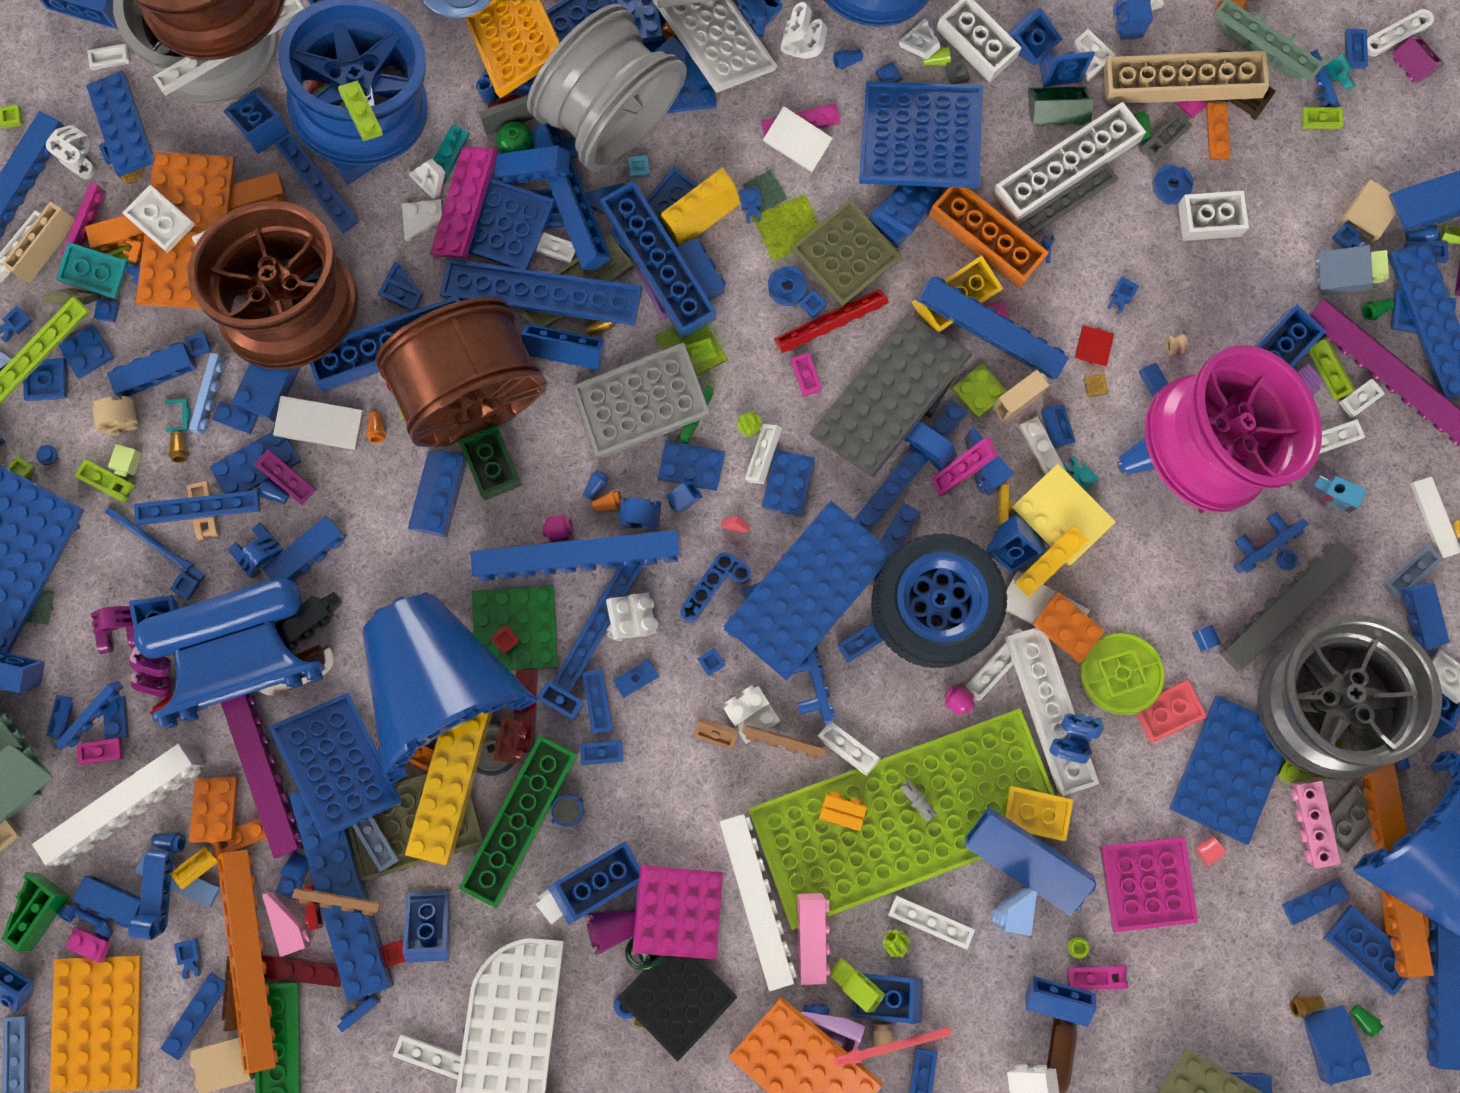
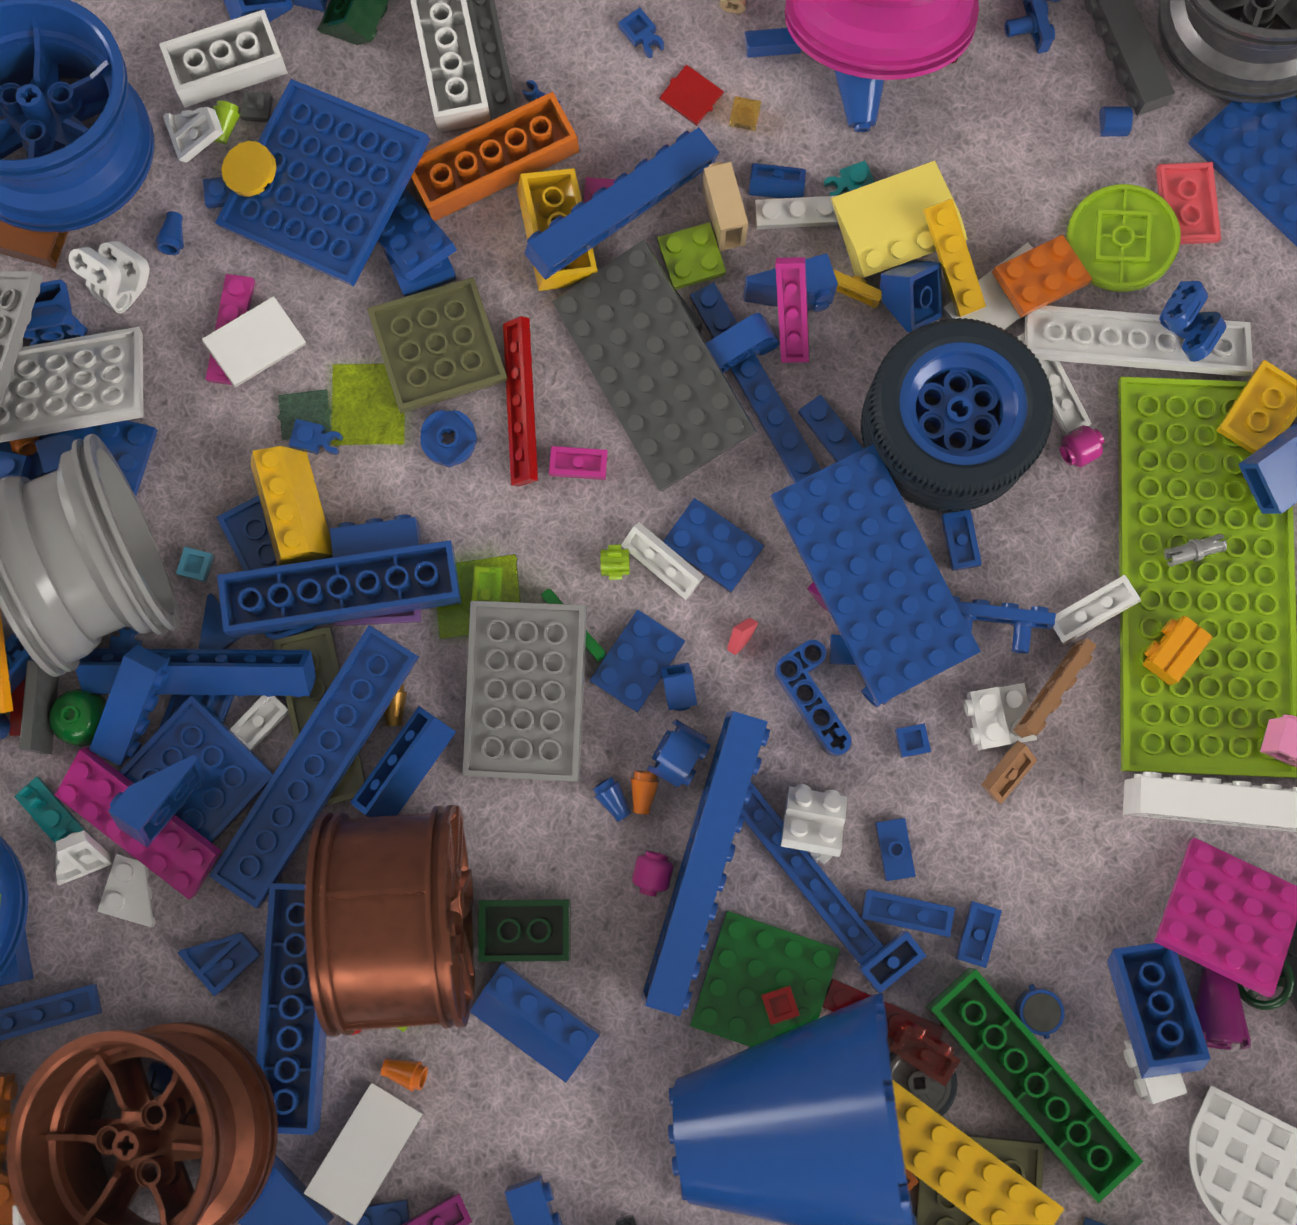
camera: 65 degrees left, 0 degrees up
(478, 204) = (154, 800): none -> blue slope
(813, 304) = (487, 415): blue plate -> none
(910, 85) = (248, 168): none -> yellow tile

